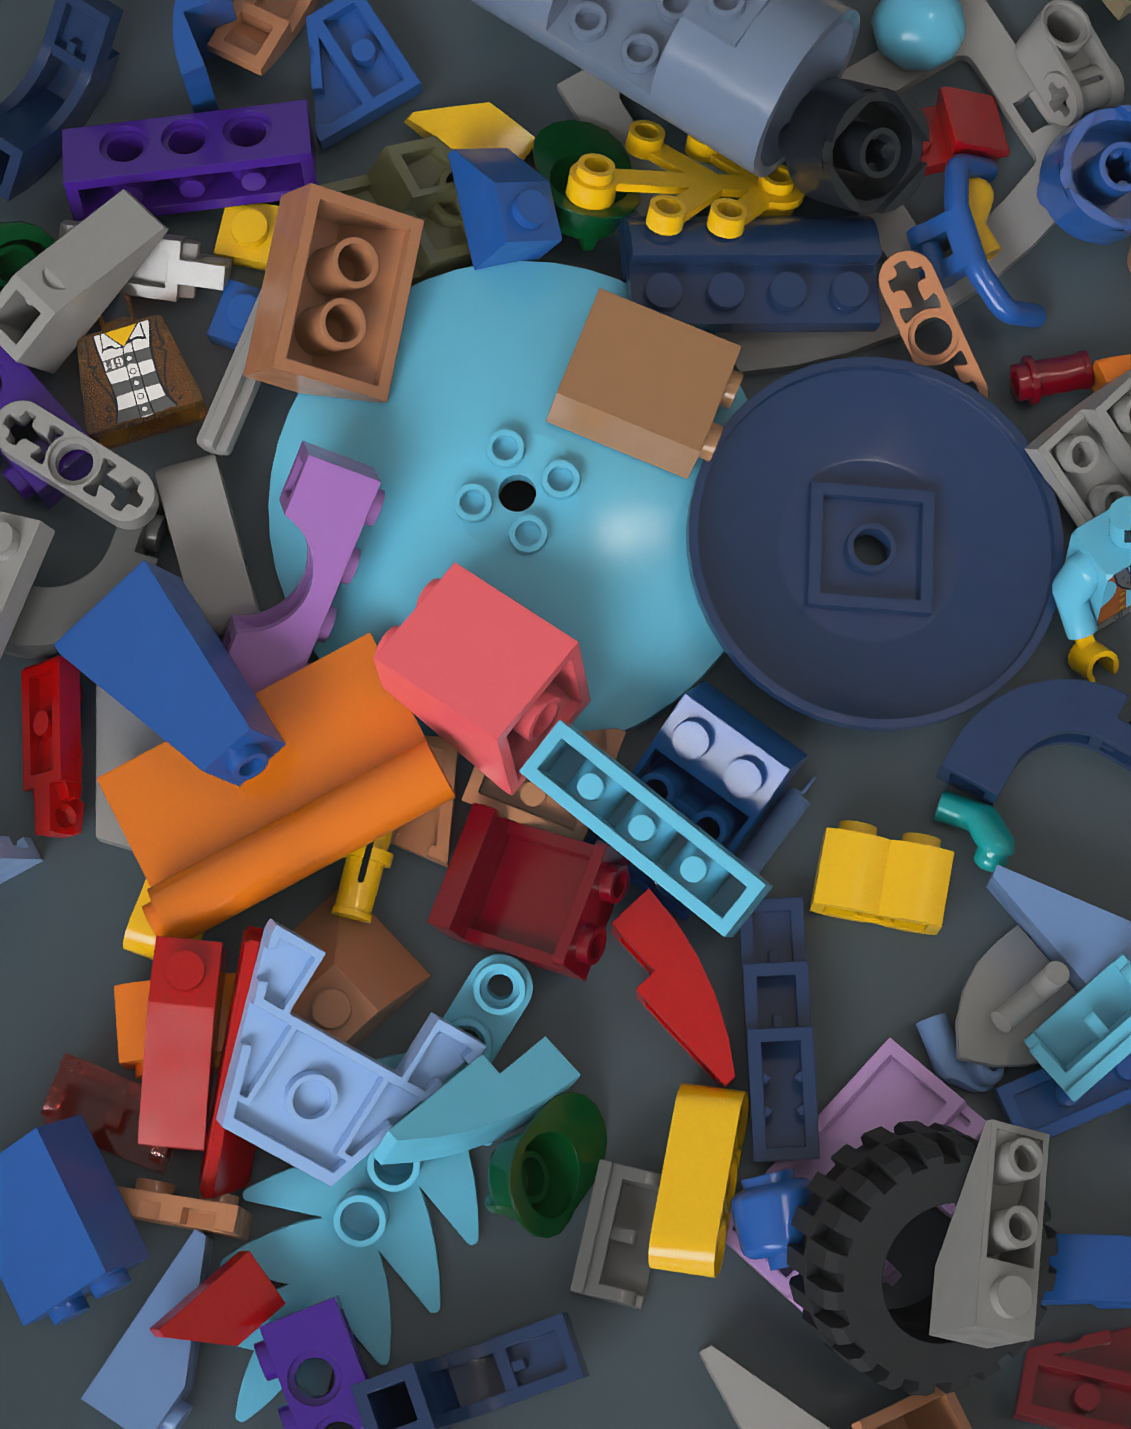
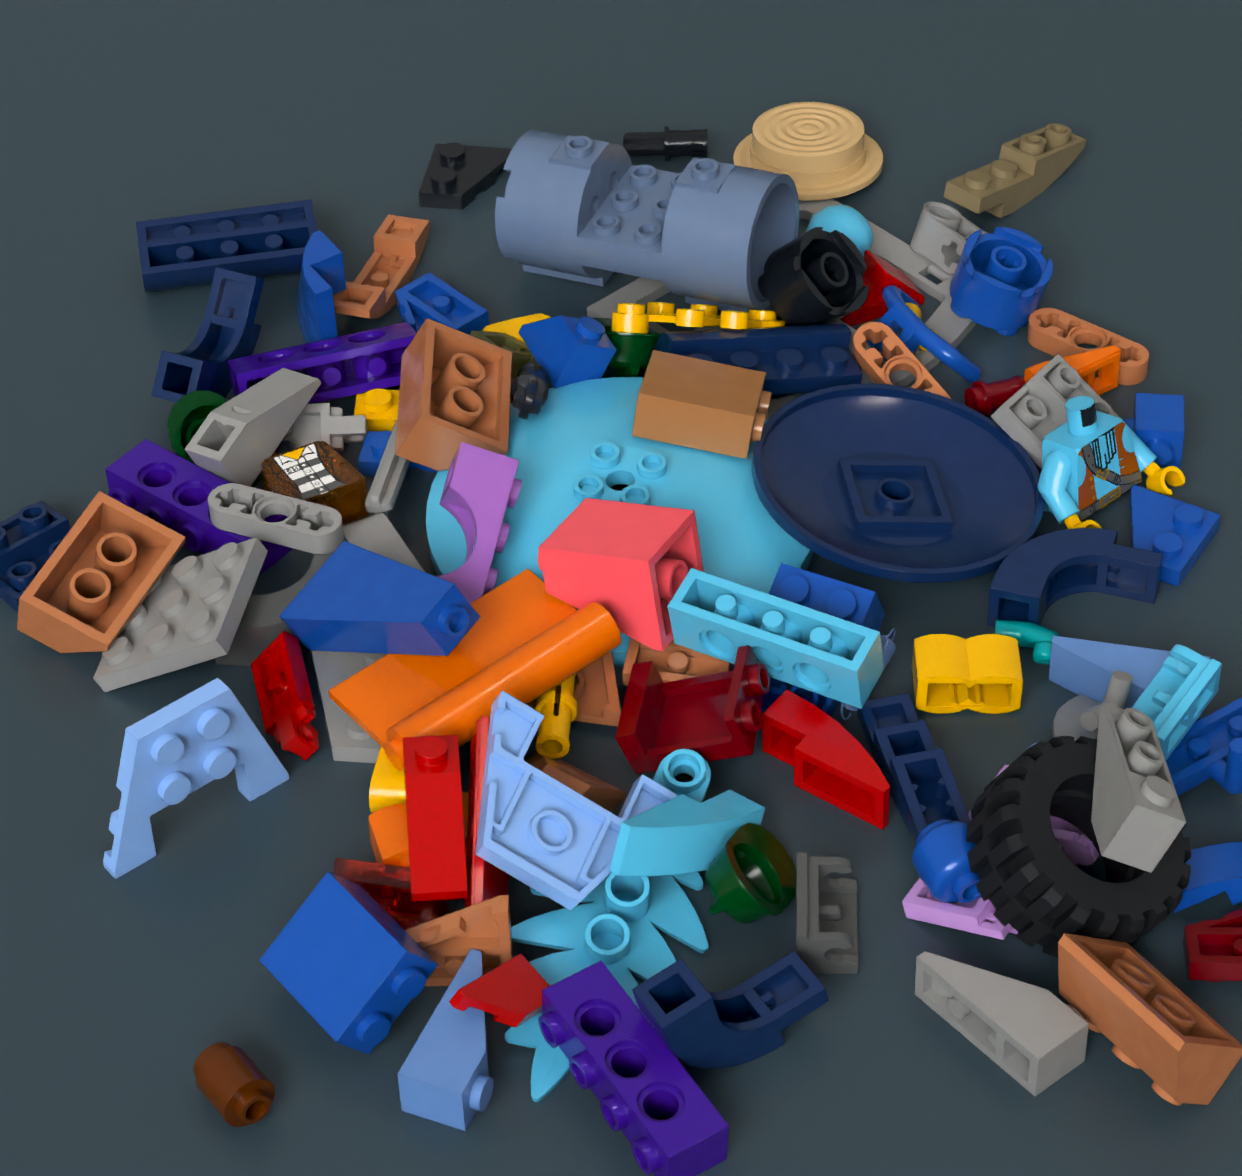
camera: 15 degrees left, 35 degrees down
(435, 294) = (529, 390): none -> black axle
(698, 1180) = (880, 863): yellow beam -> none

